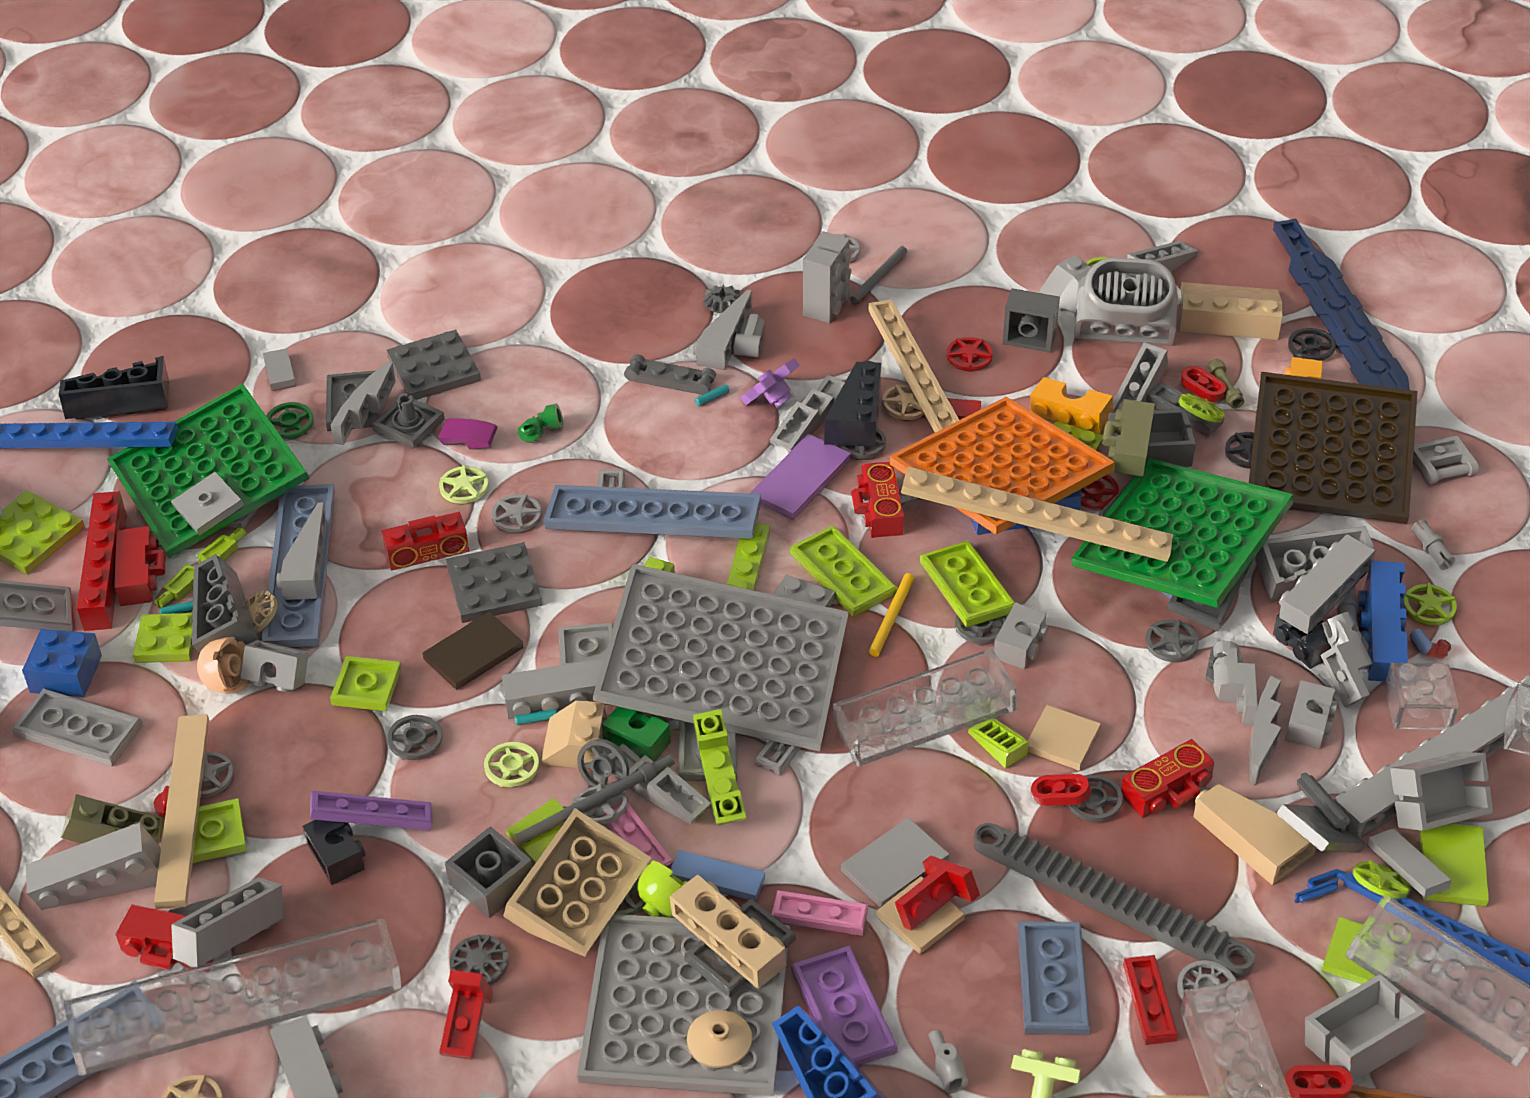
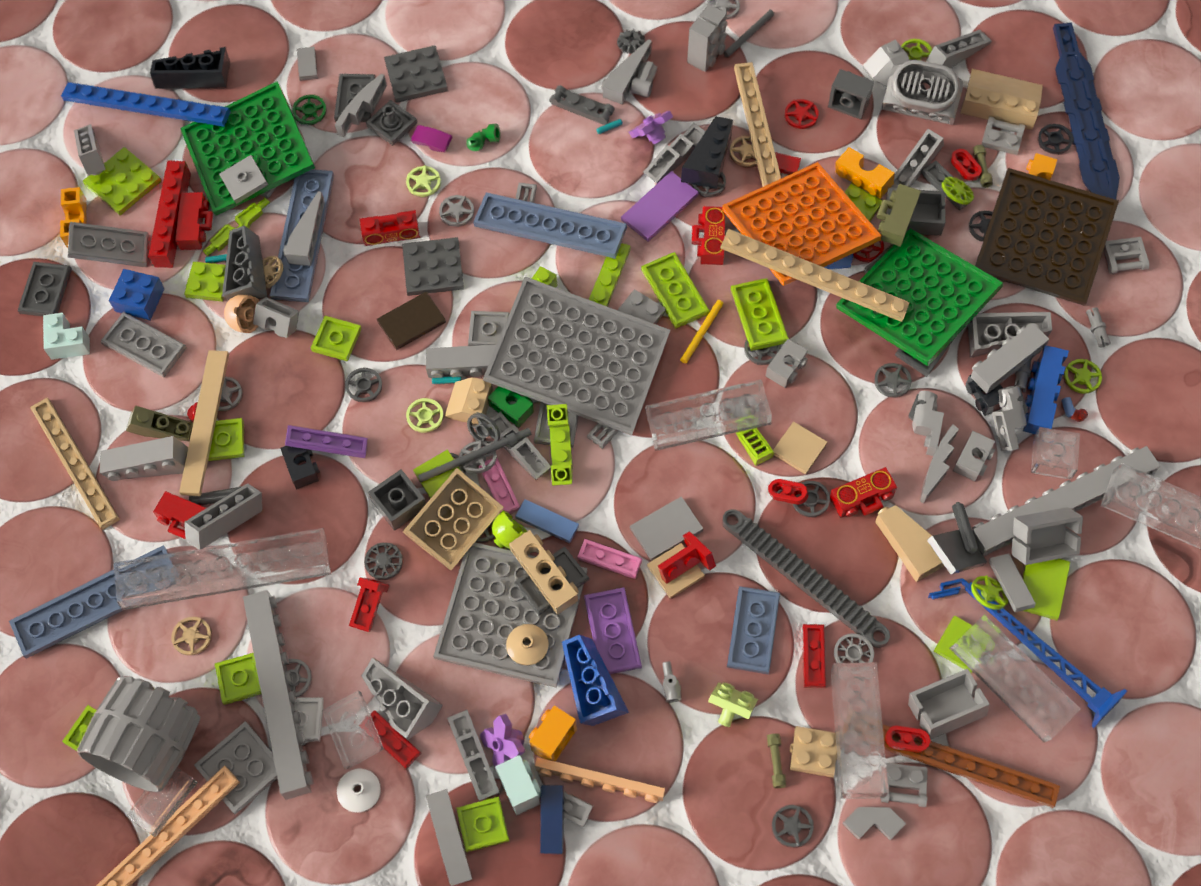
camera: 10 degrees right, 20 degrees up
(1241, 353) = (1001, 140): none -> light grey plate

